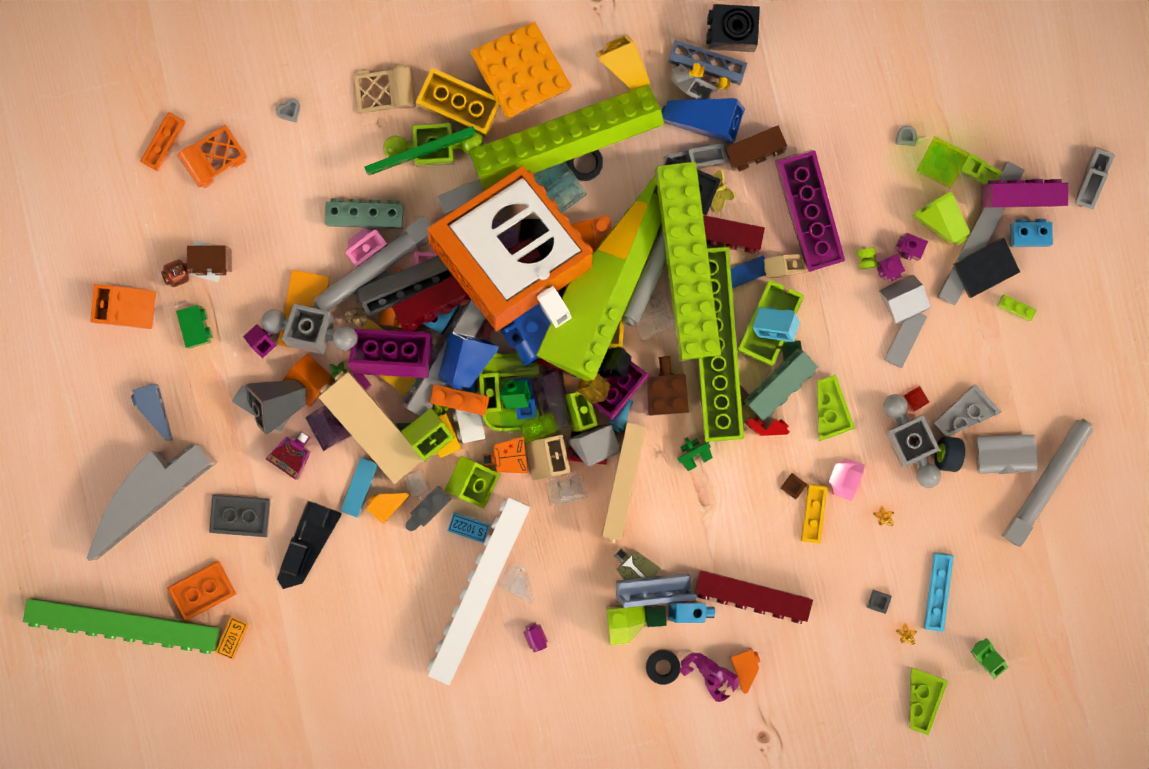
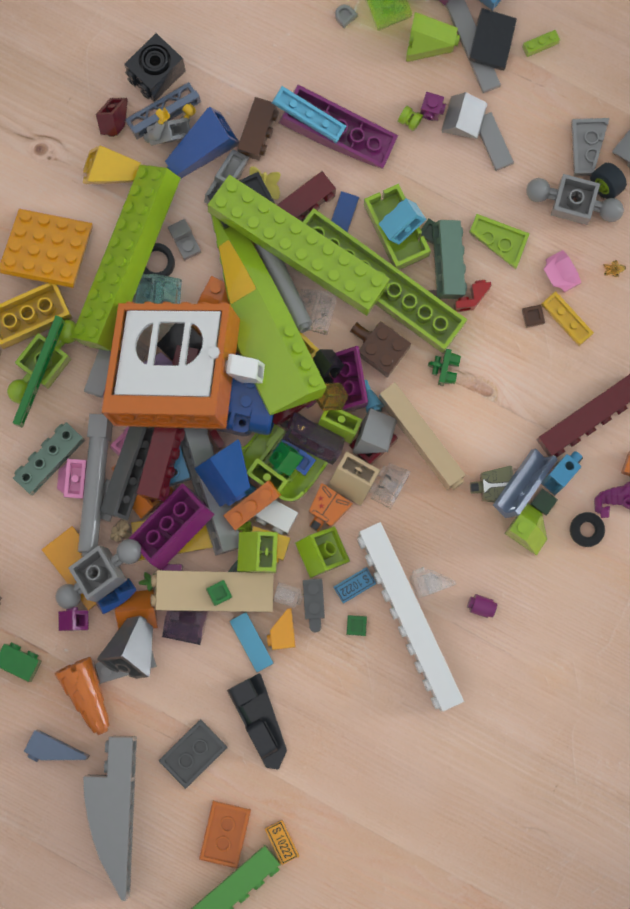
camera: 50 degrees left, 5 degrees down
(216, 391) = (82, 687): none -> orange cone
(291, 455) = (181, 673): torso -> none
(304, 358) = (116, 597): none -> blue slope
(372, 432) = (218, 592): none -> green tile
(440, 555) = (356, 625): none -> green tile
(538, 428) = (325, 464): clear neon green plate -> none
(621, 167) = (184, 239): none -> light grey slope
(668, 28) = (112, 116): none -> dark red slope
(785, 265) = (363, 181): tan slope -> none
(798, 179) = (309, 114): none -> medium azure tile
(911, 246) = (429, 79): magenta brick -> none
(916, 399) = (546, 171): clear red slope -> none

